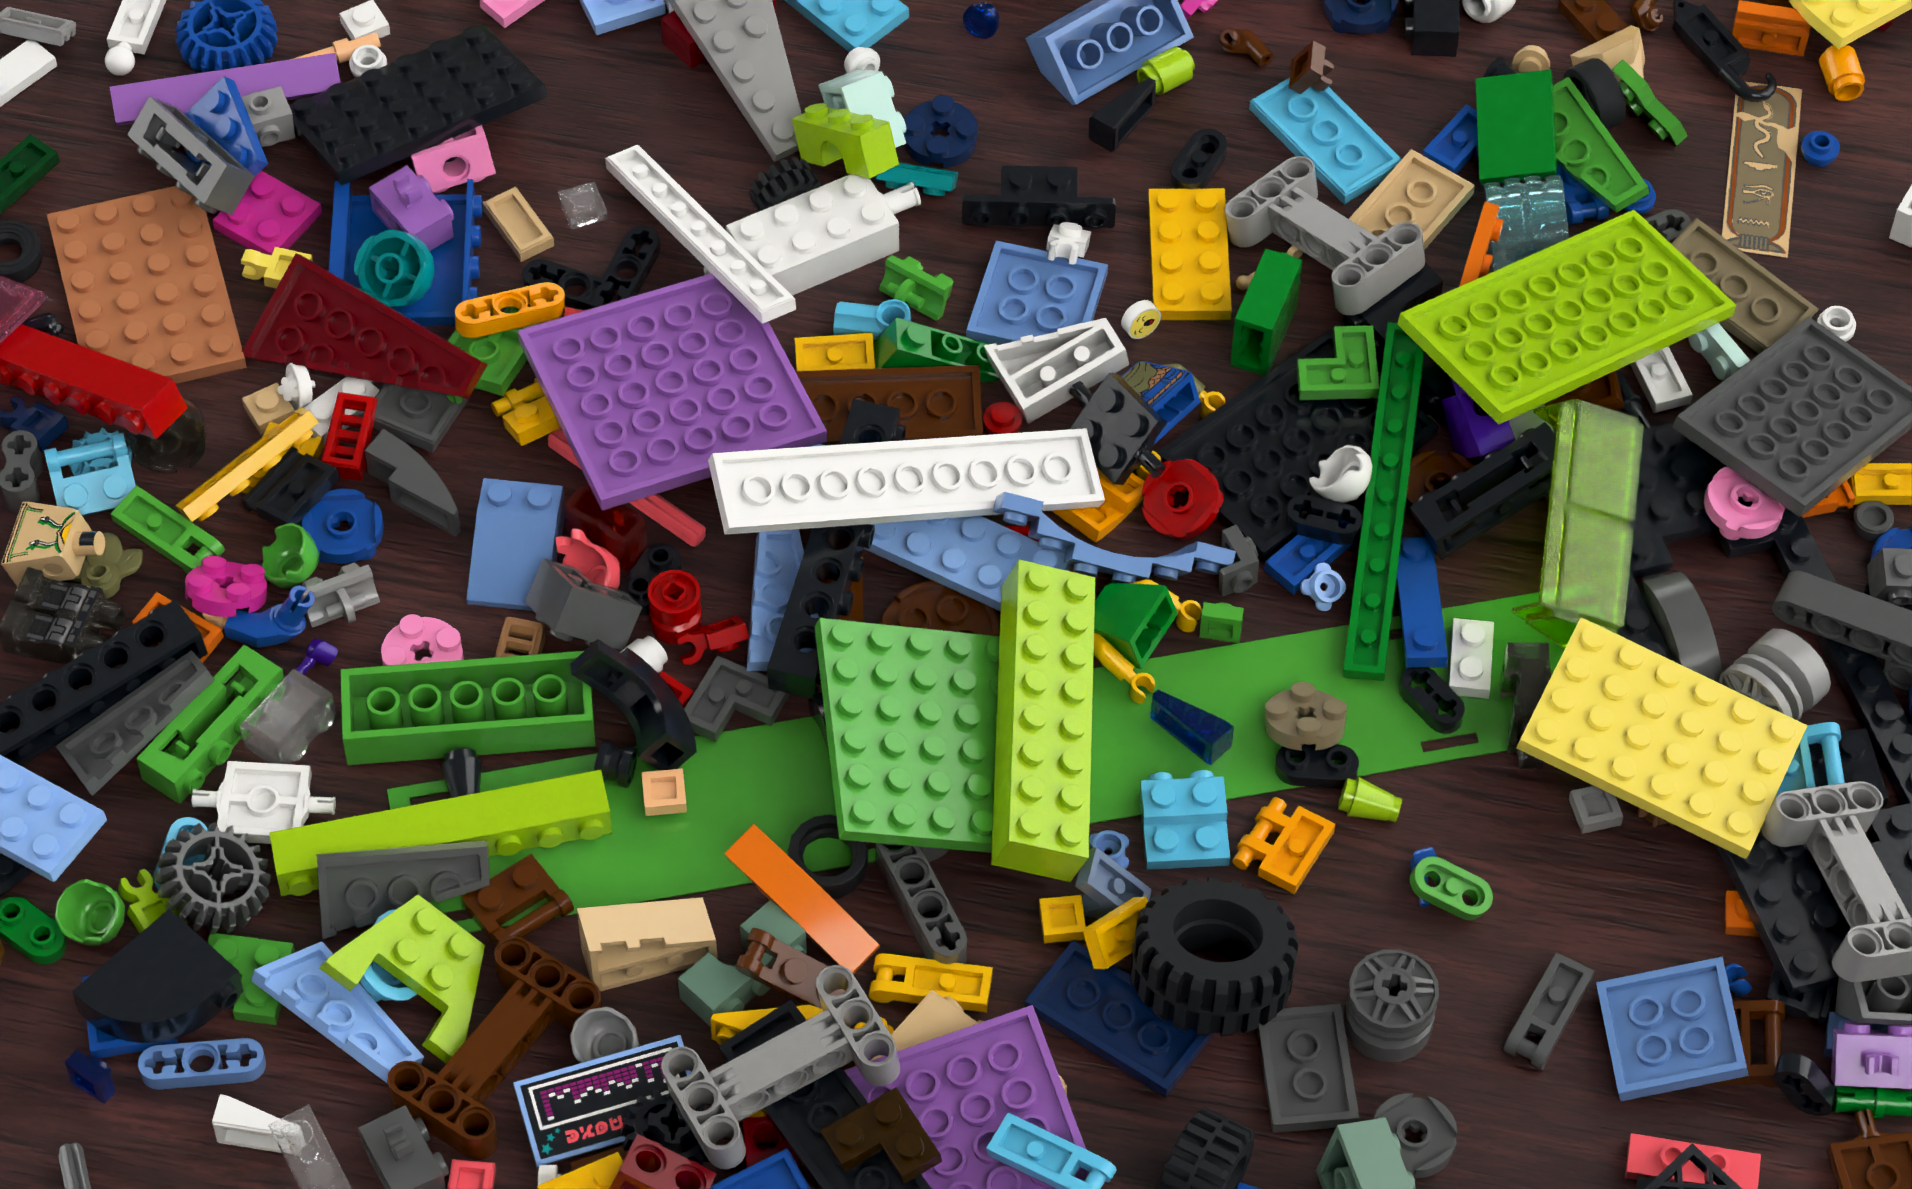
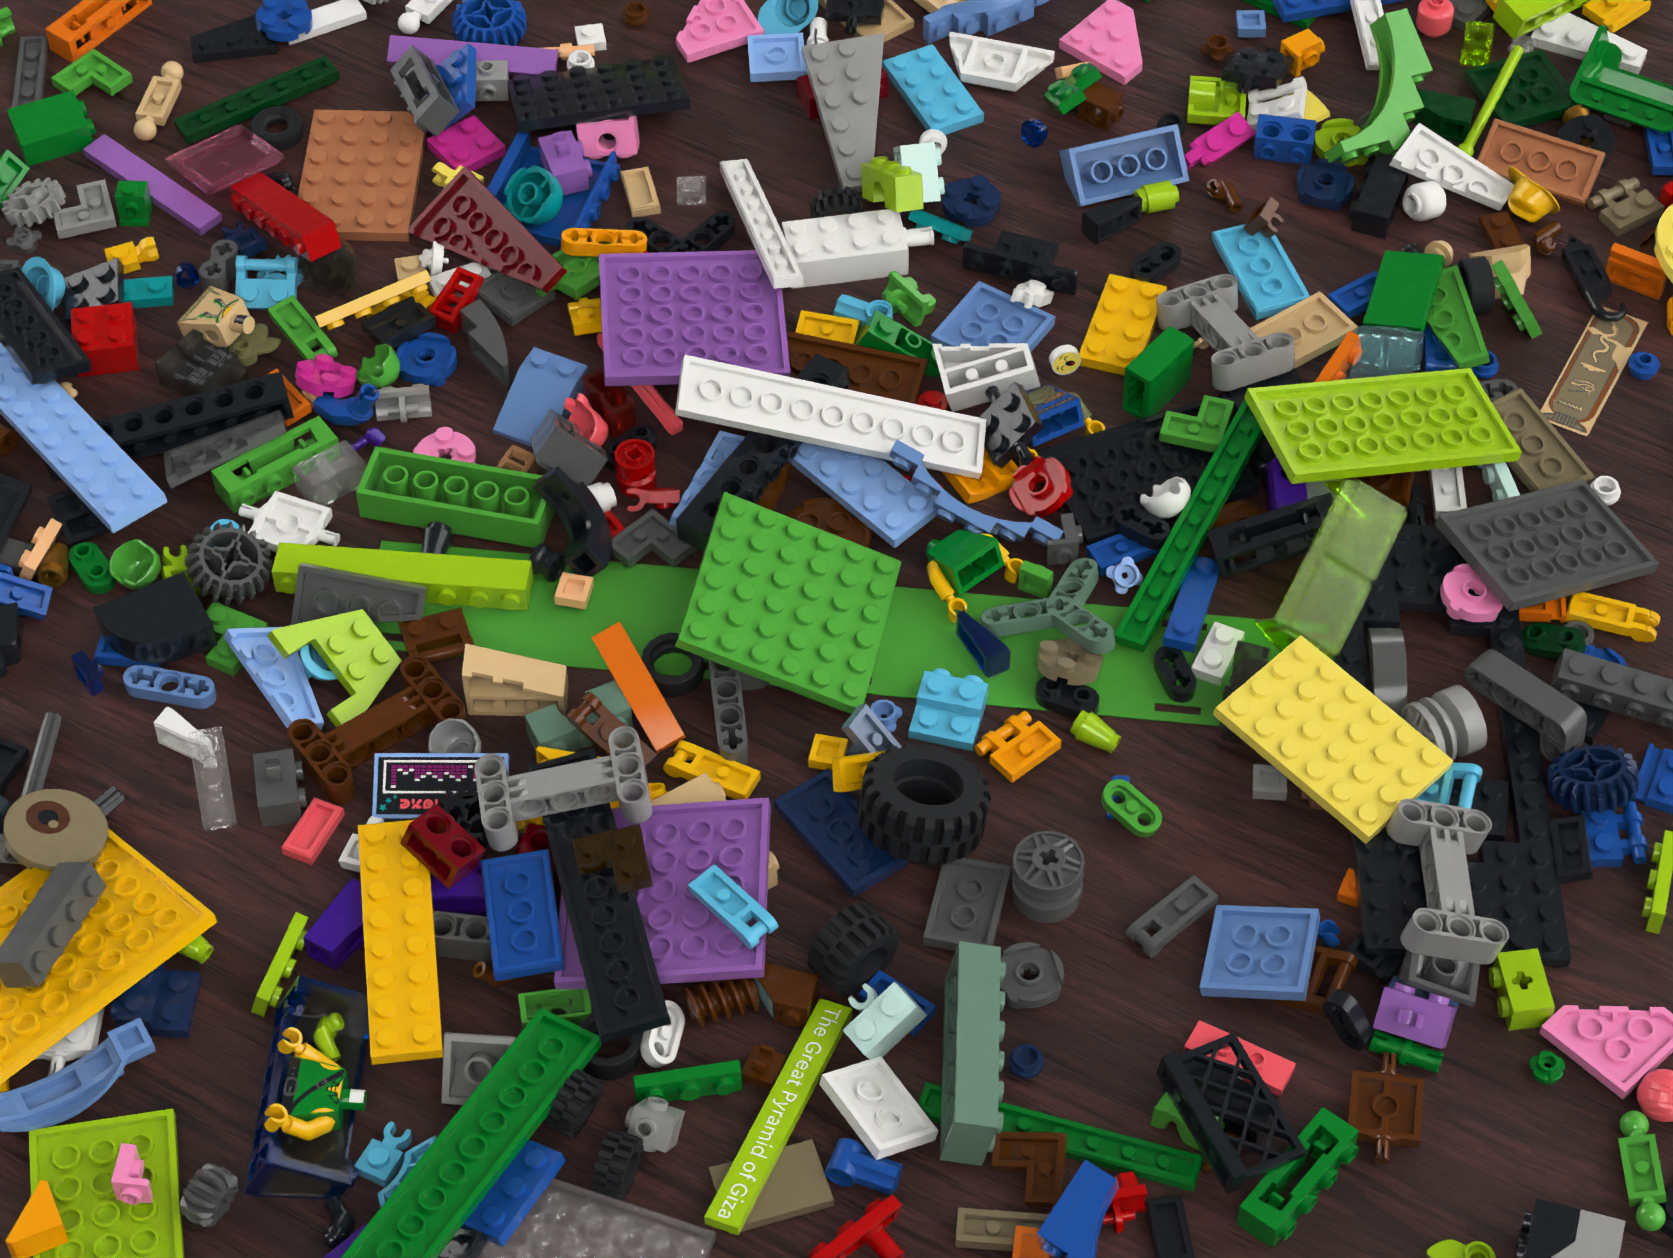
camera: 20 degrees right, 5 degrees down
(1044, 722) = (864, 608): lime brick -> none
(1278, 667) = (1058, 611): none -> sand green piece
(1850, 536) = (1551, 640): none -> dark green plate

